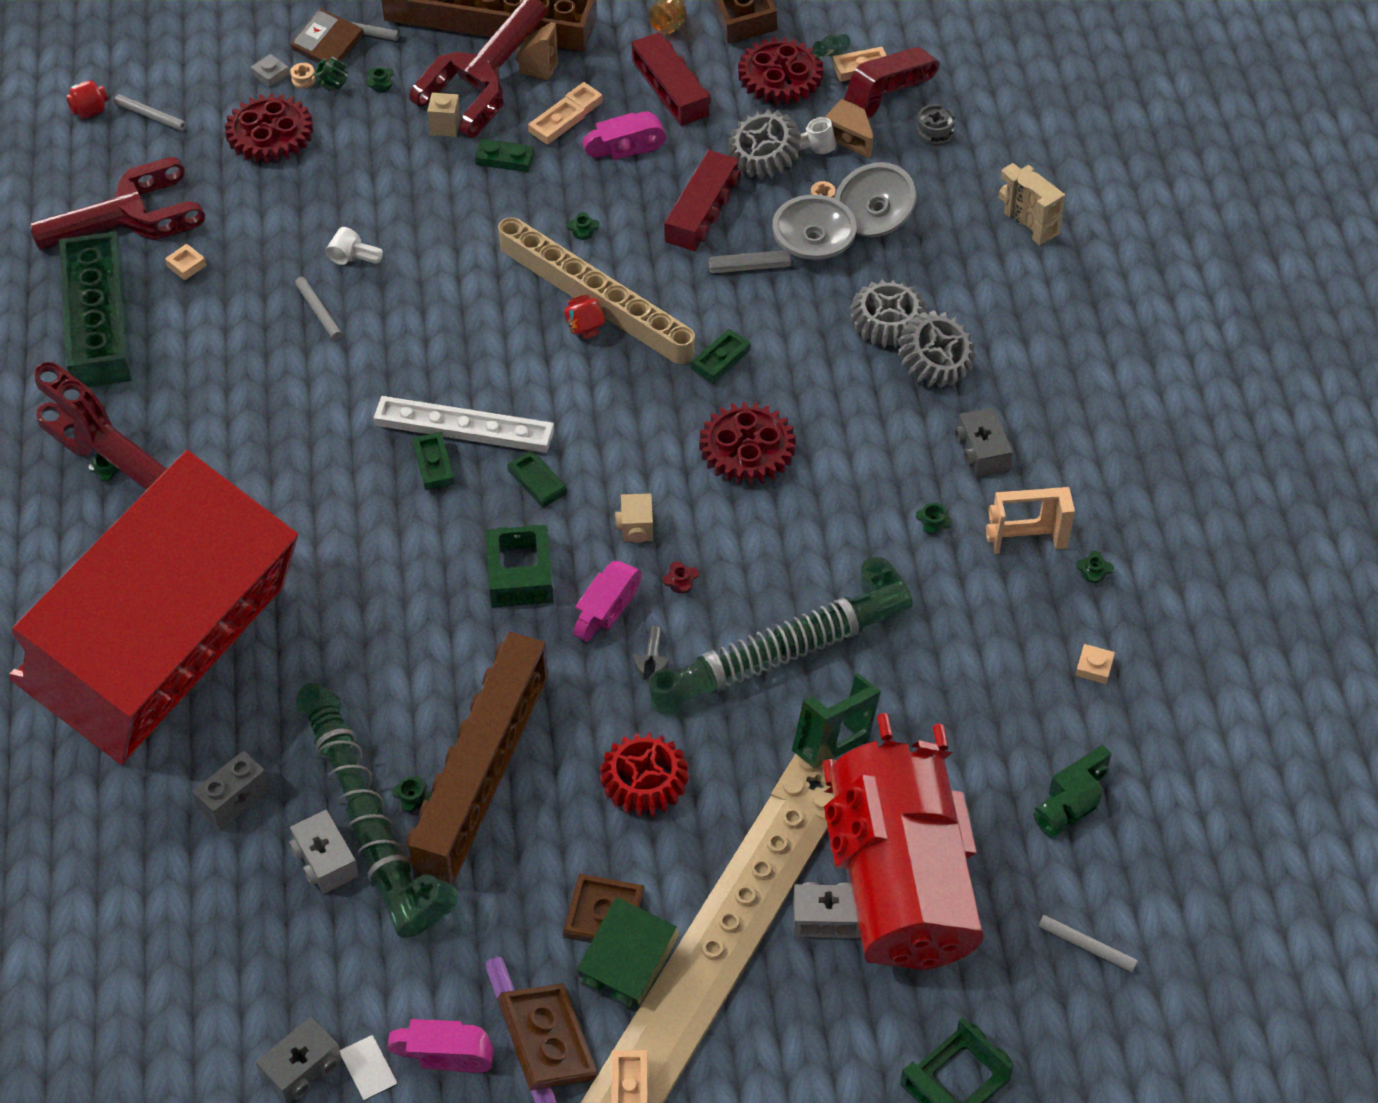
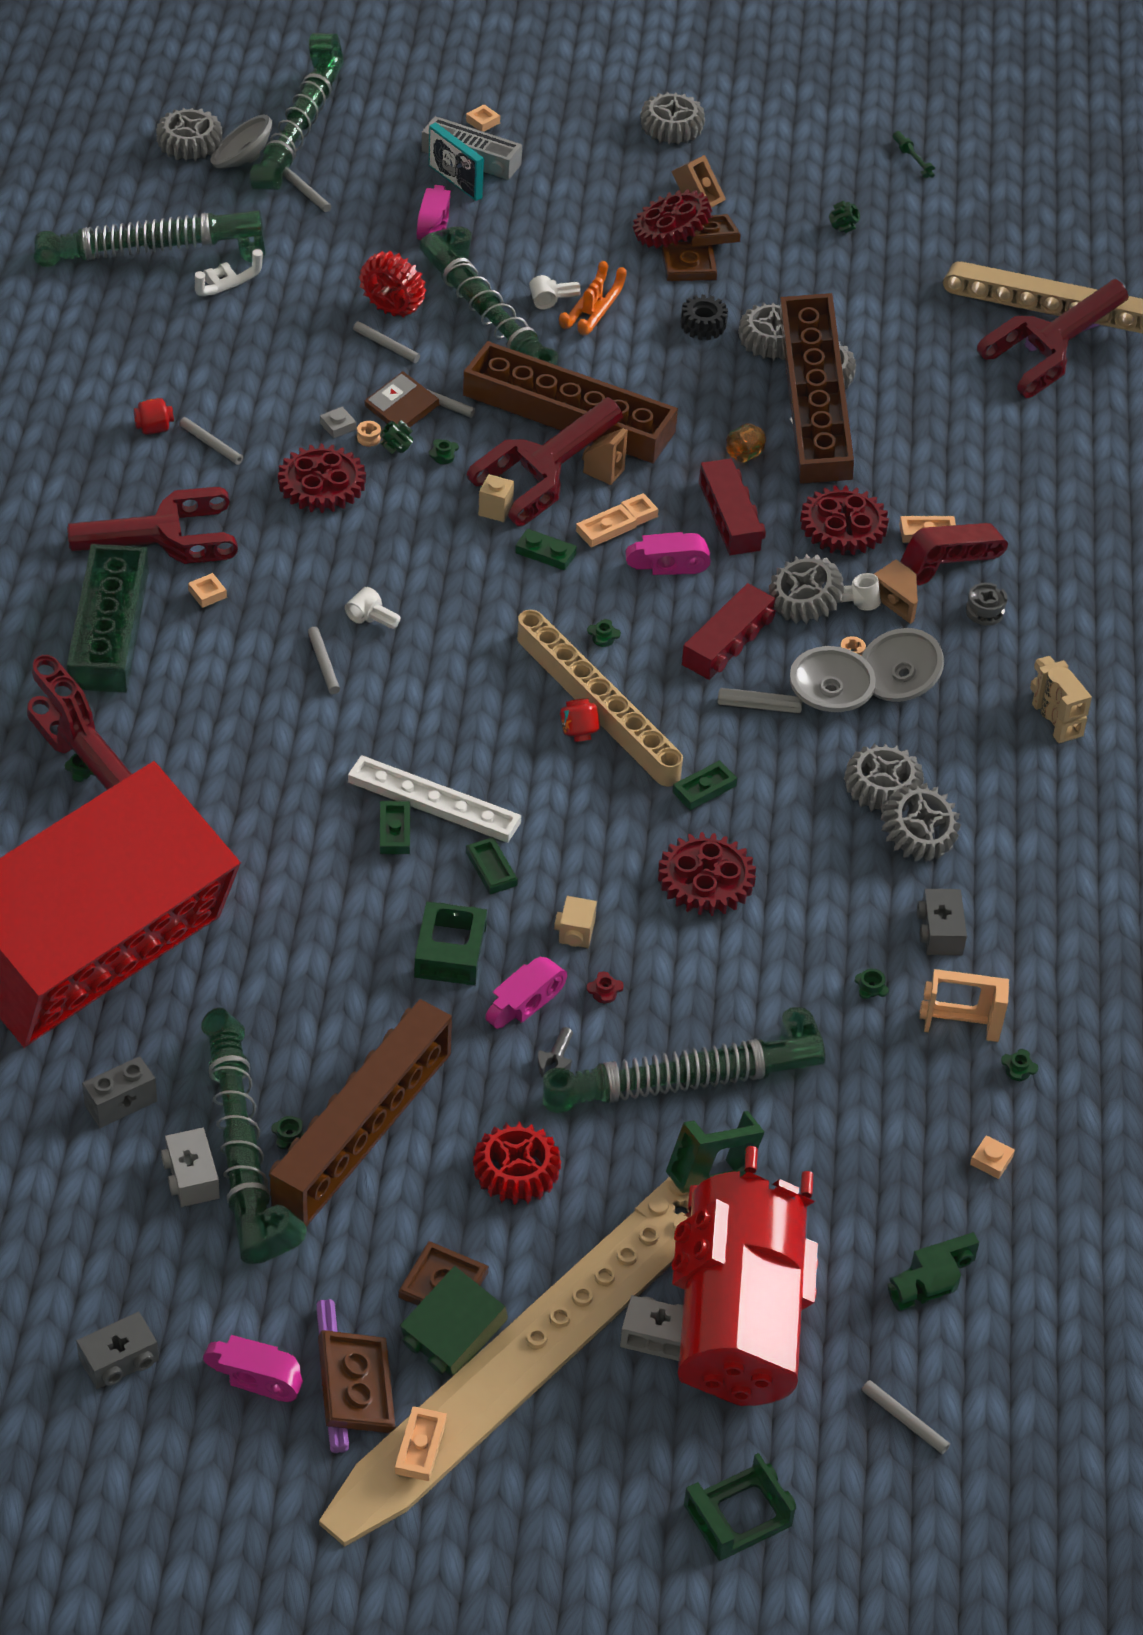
camera: 10 degrees right, 5 degrees down
(368, 1067) = (181, 1372): white sticker -> none
(831, 45) = (902, 505): clear green pin -> none

